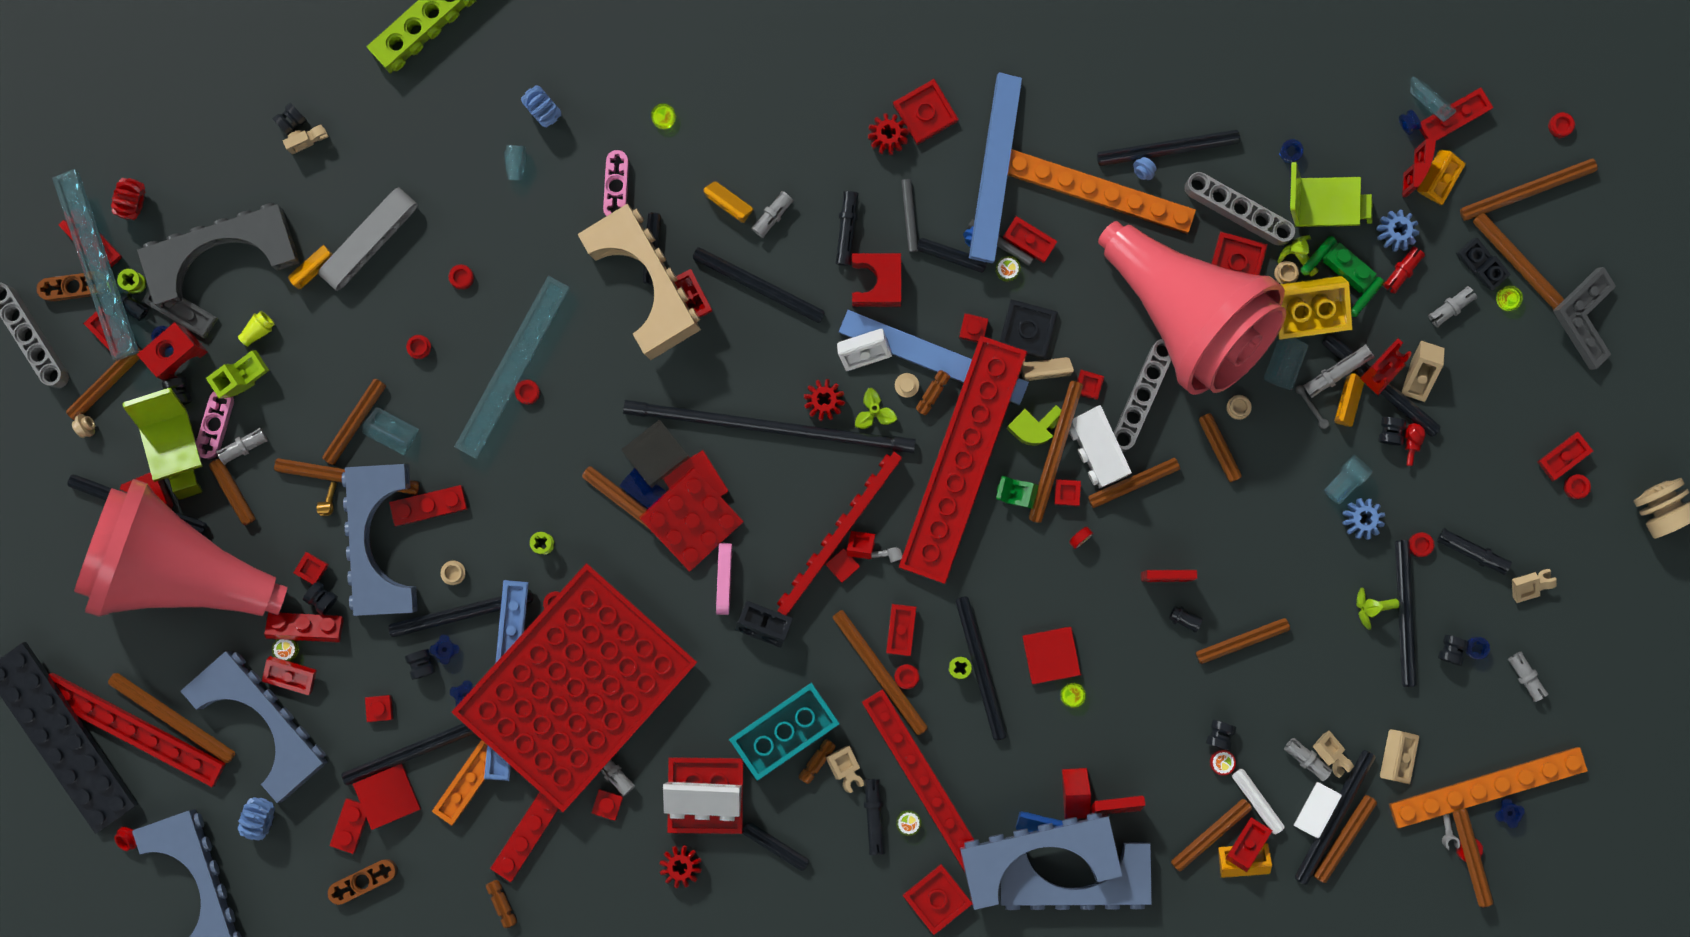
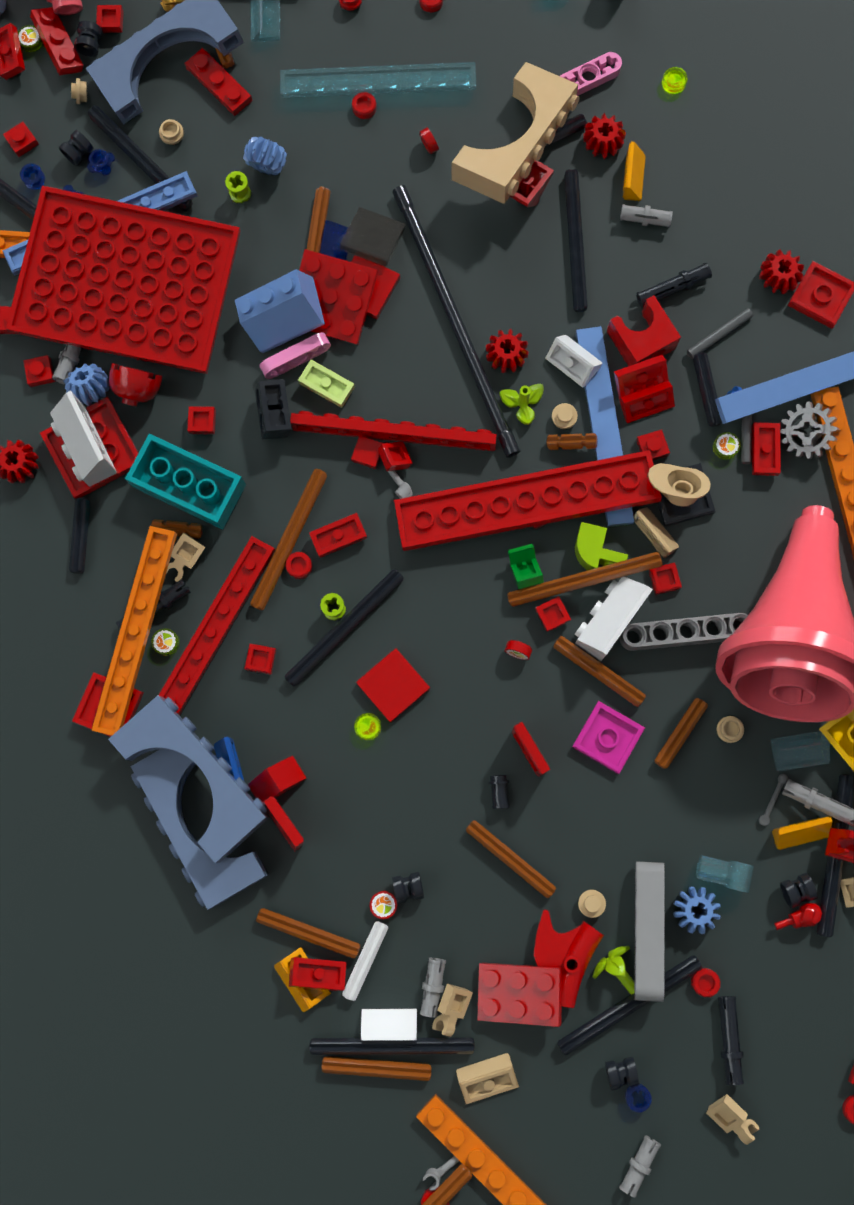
camera: 65 degrees right, 5 degrees down
(366, 632) = (79, 91): none -> tan plate
(425, 723) = (25, 174): none -> clear blue bush
(529, 504) = (265, 155): none -> medium blue gear
(596, 356) = (428, 140): none -> red tile
(648, 769) = (87, 383): none -> medium blue gear
(672, 211) = (604, 135): none -> red gear
(672, 728) = (133, 384): none -> red cylinder
(683, 569) = (280, 310): none -> medium blue slope
(735, 689) = (201, 420): none -> red plate
(763, 566) = (326, 383): none -> yellowish green plate
(890, 842) = (134, 631): none -> orange plate
(924, 307) = (644, 388): none -> red slope
(967, 751) = (260, 659): none -> red tile
(1022, 329) = (679, 484): none -> tan piece
(1027, 191) = (808, 417): none -> light grey gear
(1190, 507) = (608, 737): none -> dark pink tile
(1313, 597) = (592, 903): none -> tan plate
(1333, 645) = (556, 949): none -> red pin
(1351, 694) = (520, 994): none -> red plate
(1359, 565) = (649, 931): none -> light grey beam

